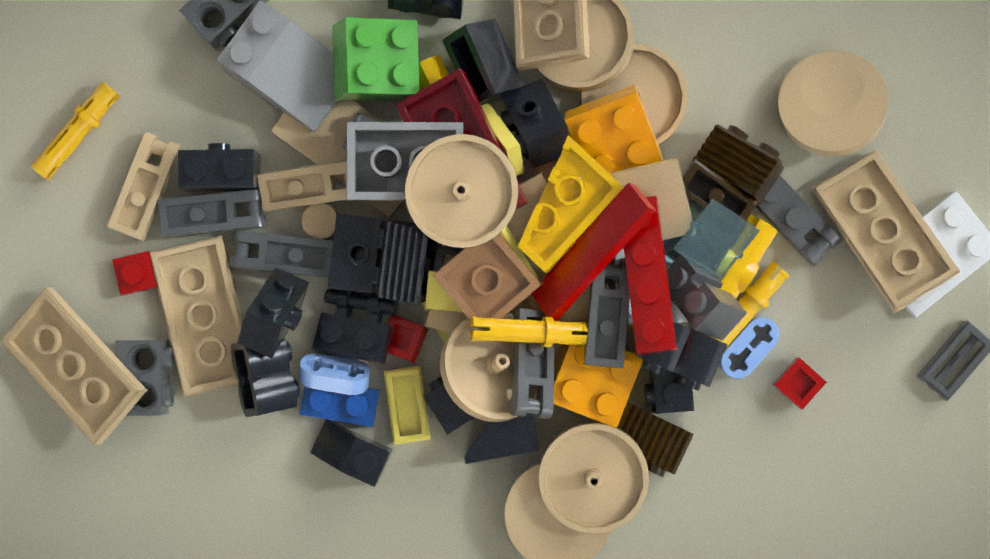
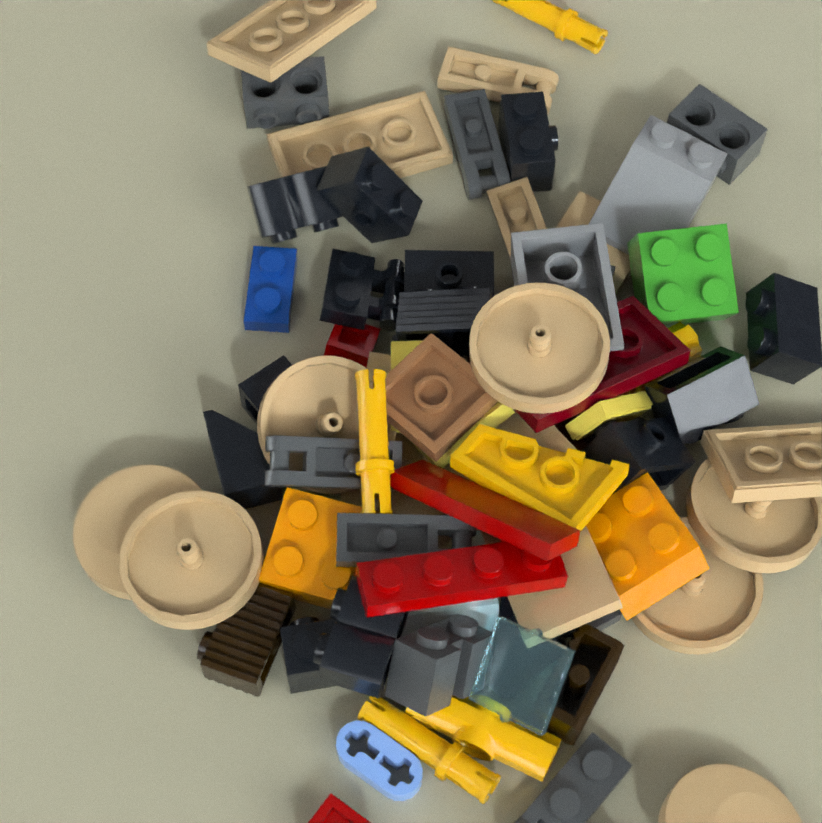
camera: 80 degrees right, 25 degrees down
(134, 273) = (399, 79): red plate -> none
(284, 252) = (441, 208): dark grey plate -> none
(319, 221) = (485, 241): tan tile -> none
(334, 374) = (303, 274): light blue beam -> none
(351, 452) = (208, 306): black slope -> none
(407, 405) = (253, 355): light yellow tile -> none
(740, 162) = (627, 714): dark brown brick -> none

